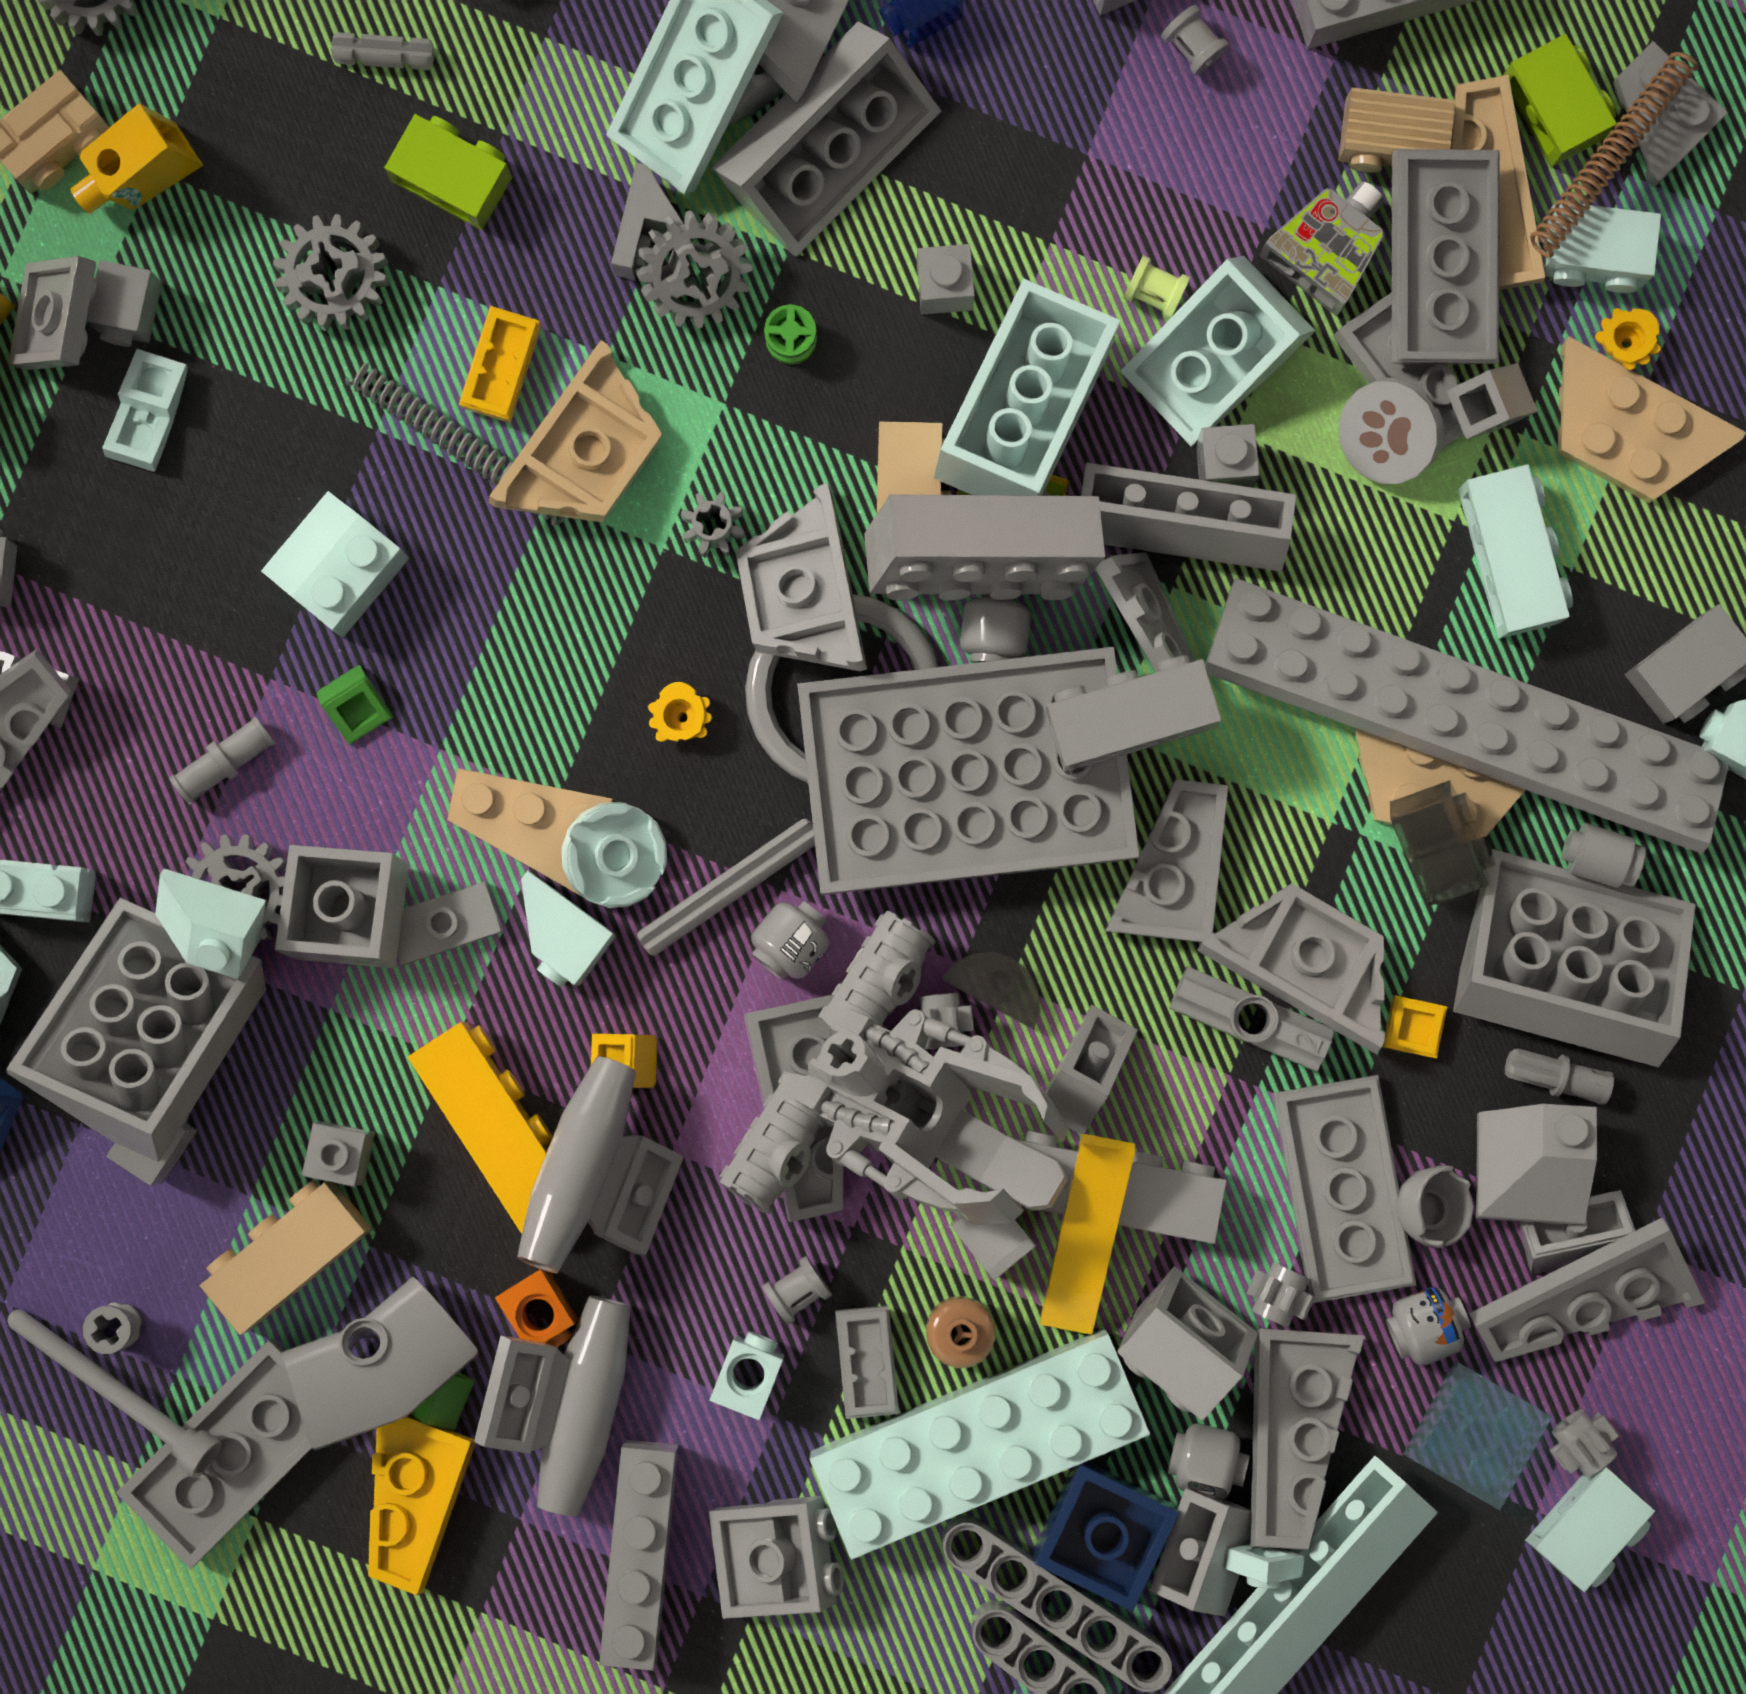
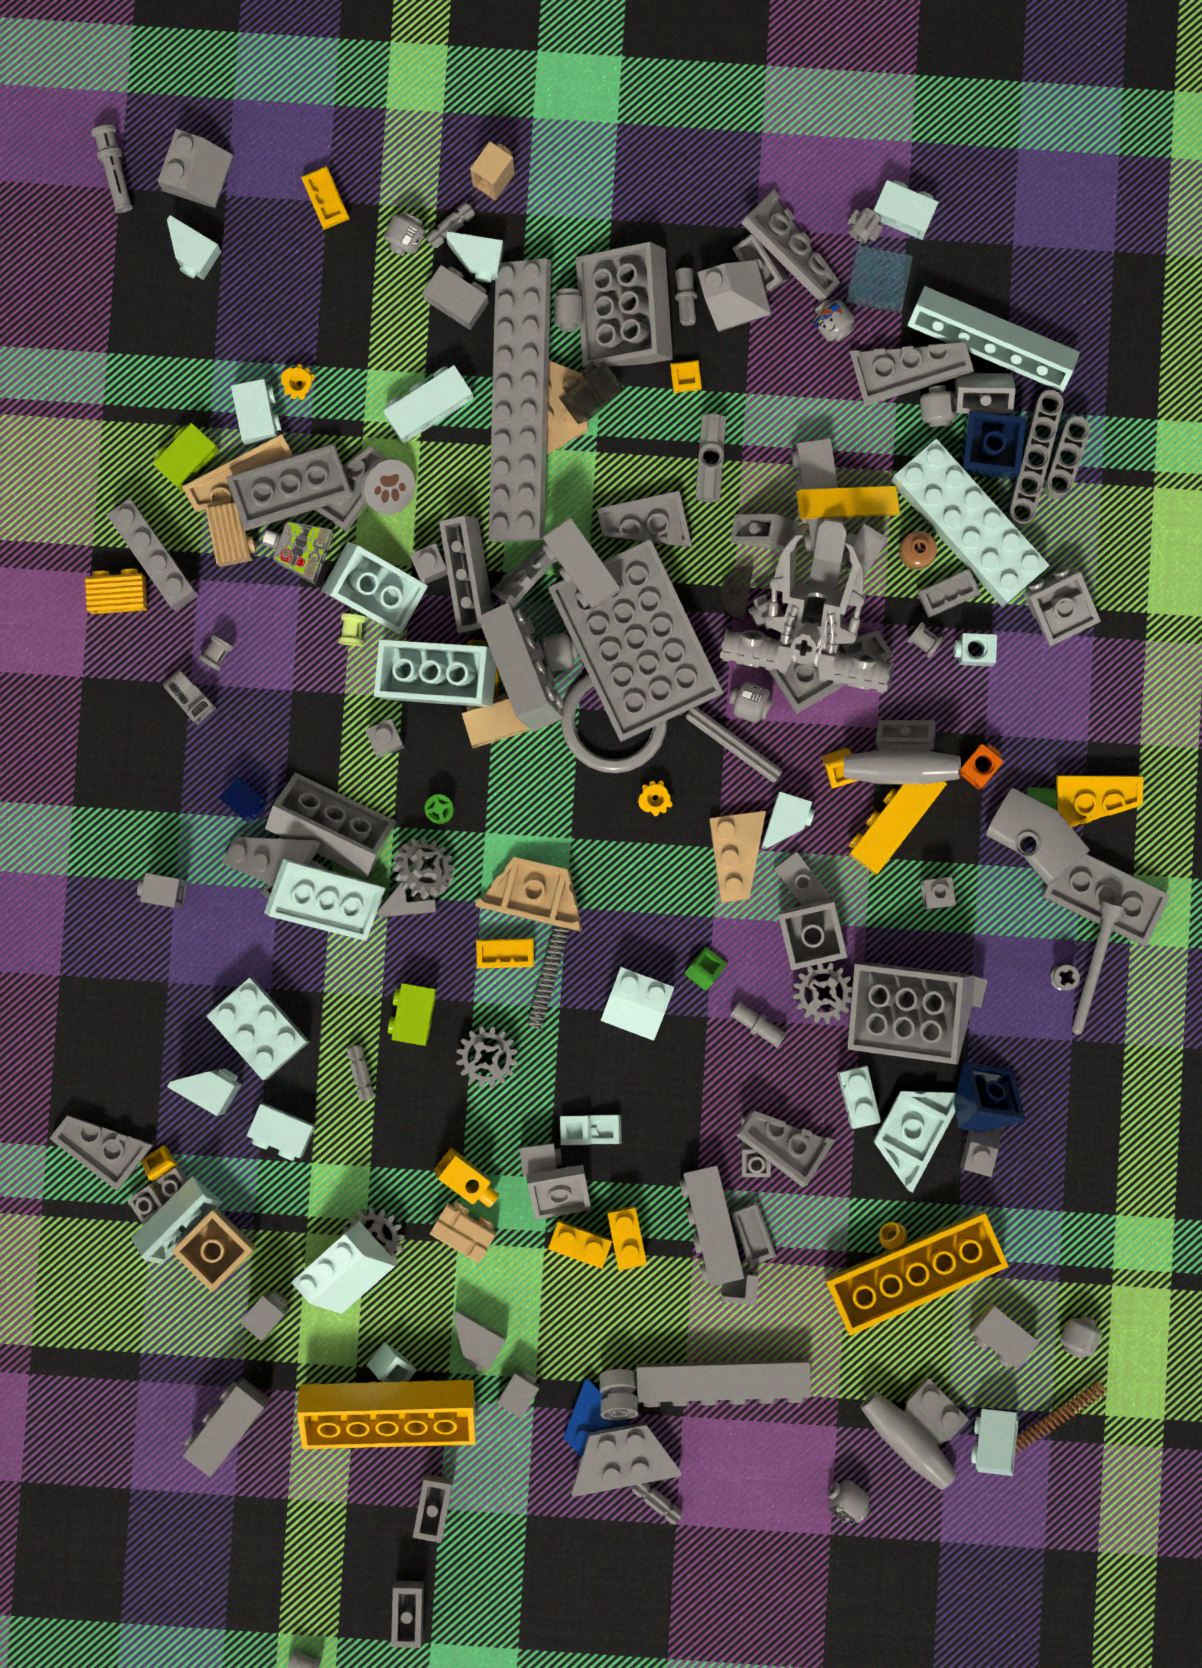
camera: 110 degrees left, 0 degrees up
(209, 922) = (845, 995): light aqua slope -> none
(284, 1255) = (998, 903): tan brick -> none
(560, 1402) = (1022, 736): light grey plate -> none
(614, 854) = (738, 806): light aqua tile -> none
(639, 1554) = (1083, 673): light grey brick -> none
(705, 511) = (545, 809): light grey gear -> none
(801, 588) = (569, 757): light grey wing -> none
(1187, 1344) = (885, 434): light grey brick -> none
(1264, 1565) = (981, 361): light aqua plate -> none
(1280, 1295) = (843, 398): light grey gear -> none
(1309, 960) = (671, 438): light grey wing -> none
(1343, 1188) = (779, 385): light grey tile -> none
(1435, 1206) = (773, 336): light grey hair -> none
(1491, 401) = (355, 439): light grey brick -> none
(1609, 156) = (208, 418): medium nougat piece -> none
(1631, 426) = (342, 366): tan wing -> none
(1680, 126) = (171, 402): light grey wing -> none

